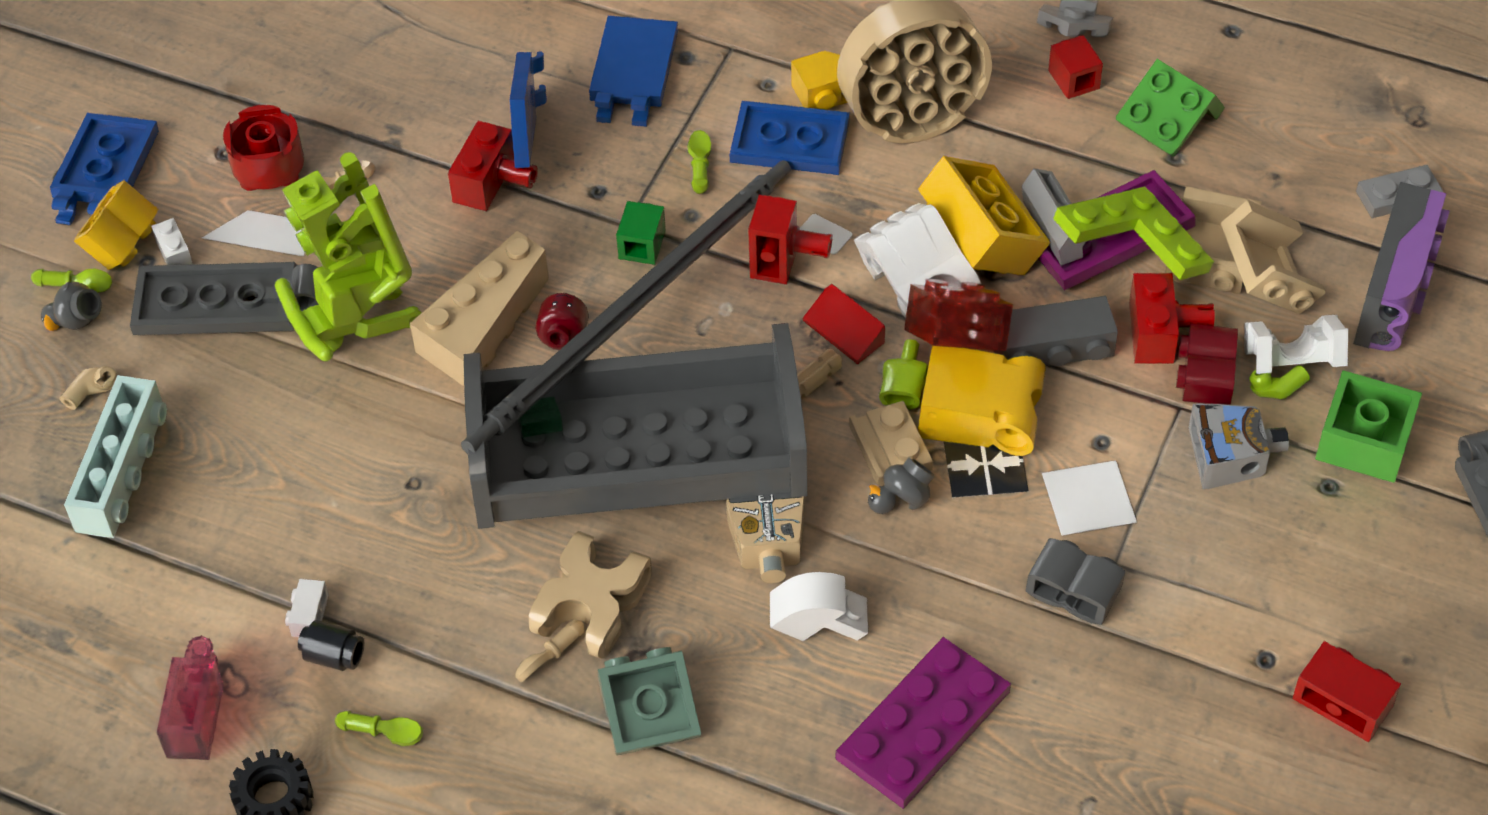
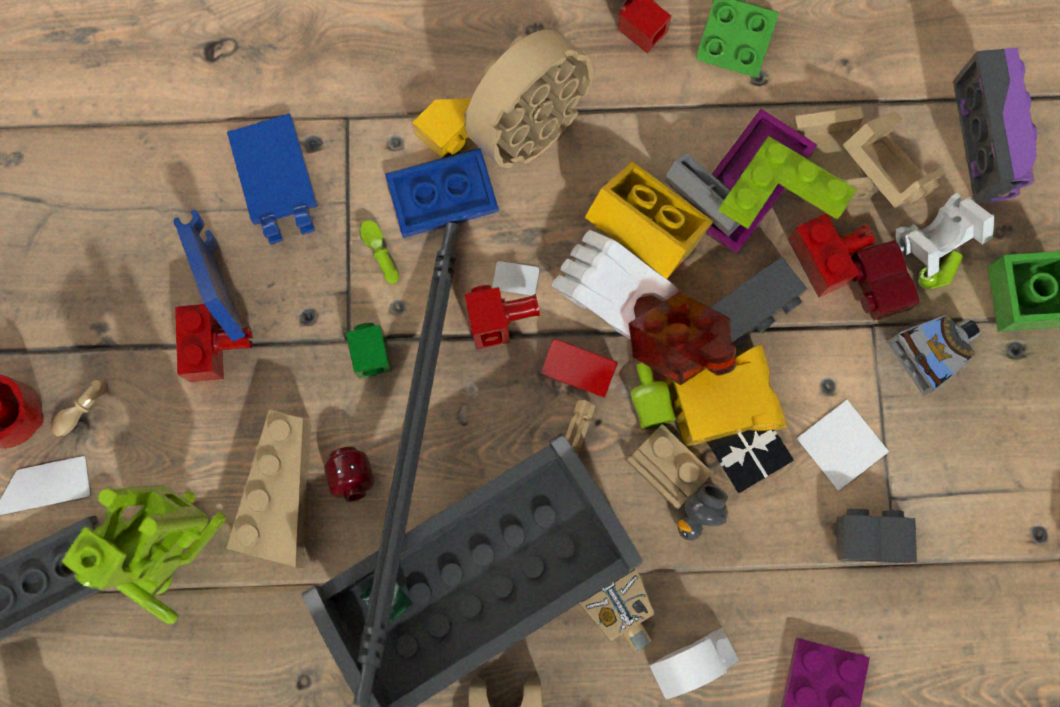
camera: 25 degrees left, 25 degrees up
(1380, 192) = (948, 38): light grey hinge -> none

